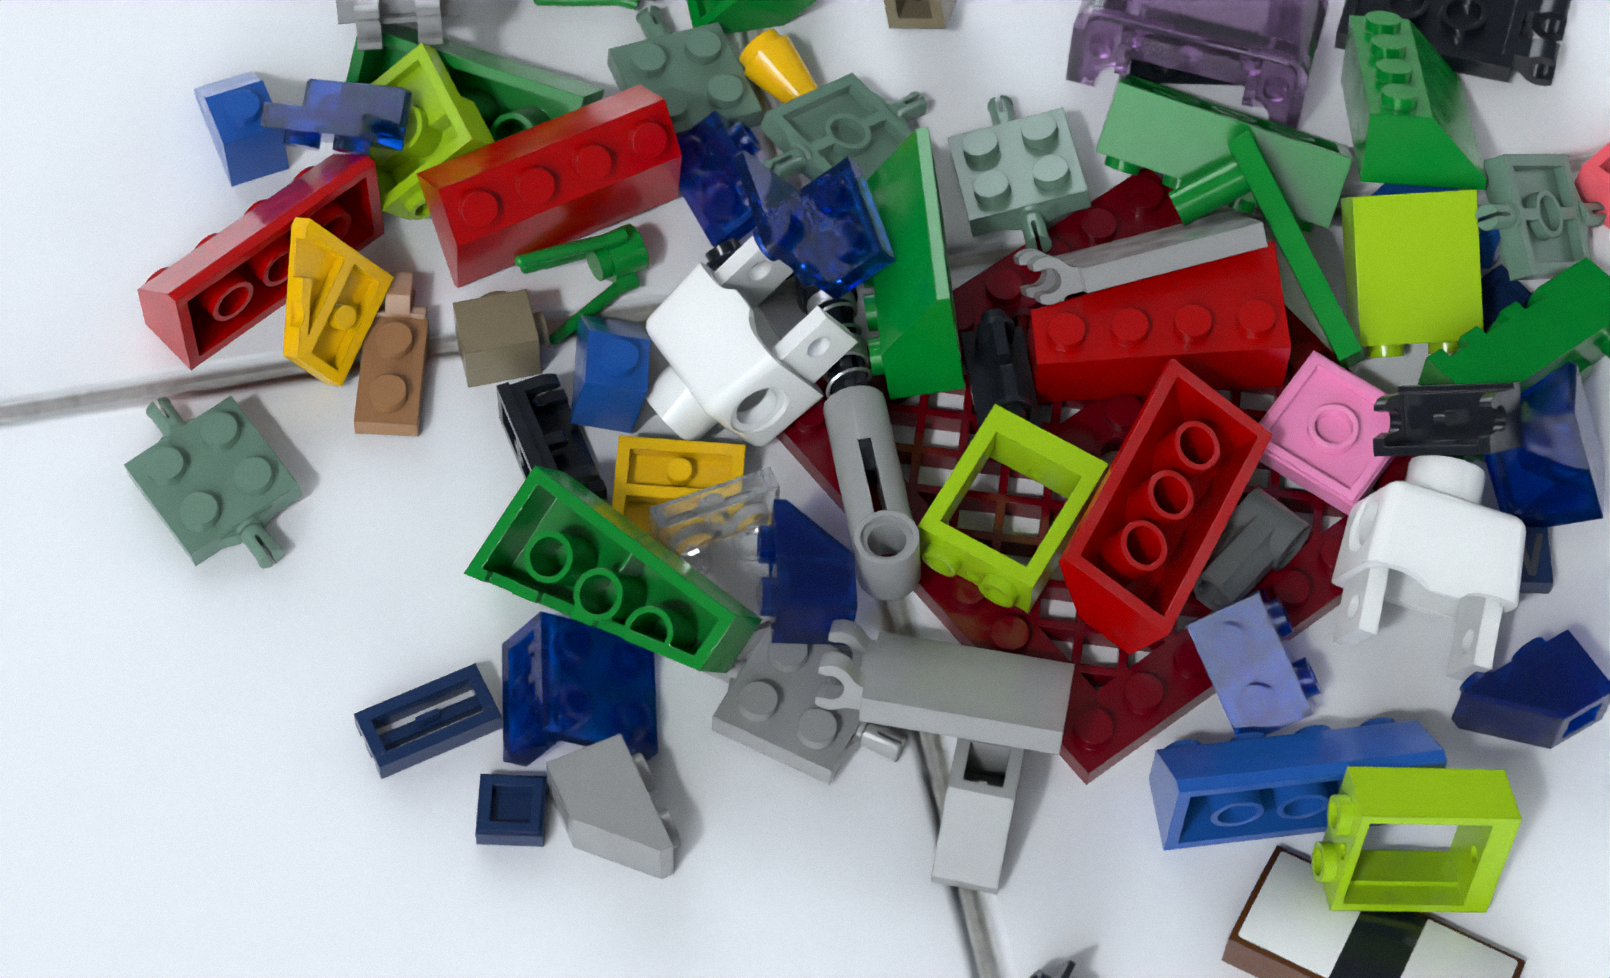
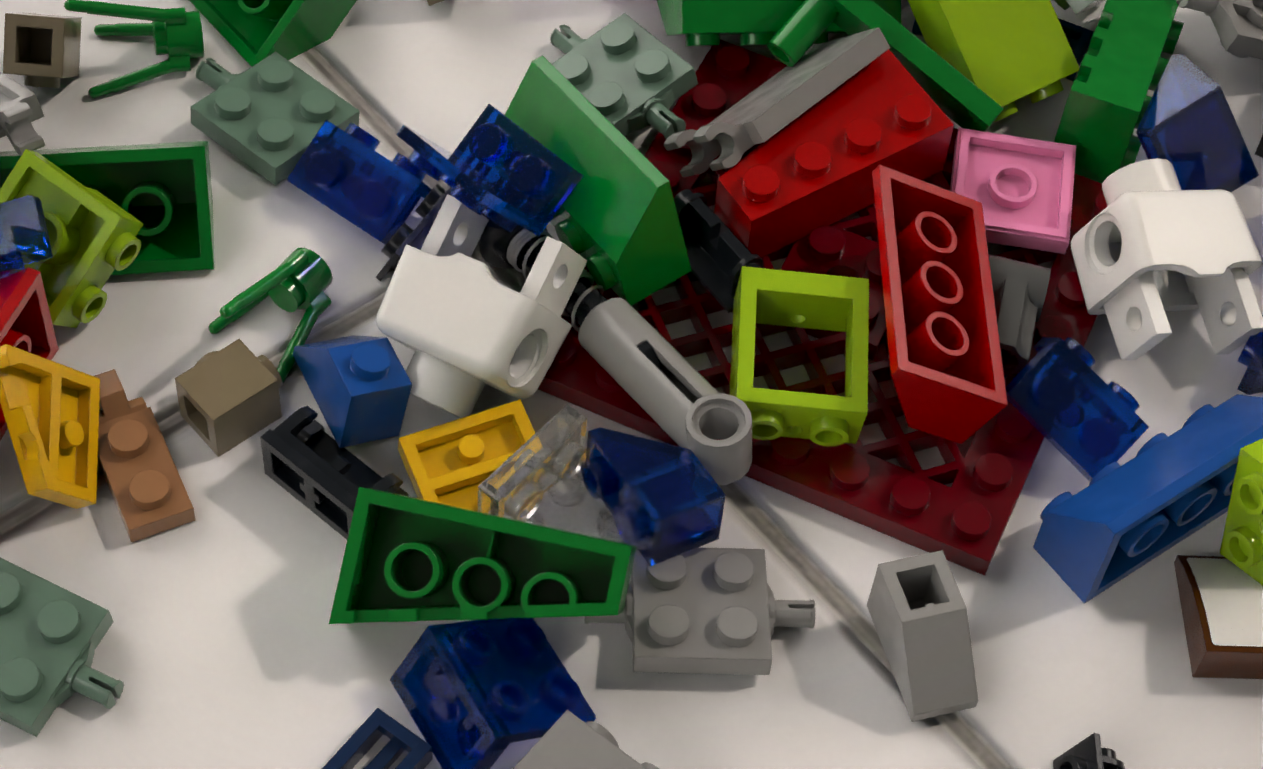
camera: 30 degrees left, 5 degrees down
(553, 182) = (211, 235): red slope -> none
(776, 66) = (357, 73): yellow cone -> none
(837, 124) = (442, 98): sand green plate -> none
(947, 688) = (845, 535): light grey tile -> none
(1451, 419) = (1122, 131): black hinge -> none

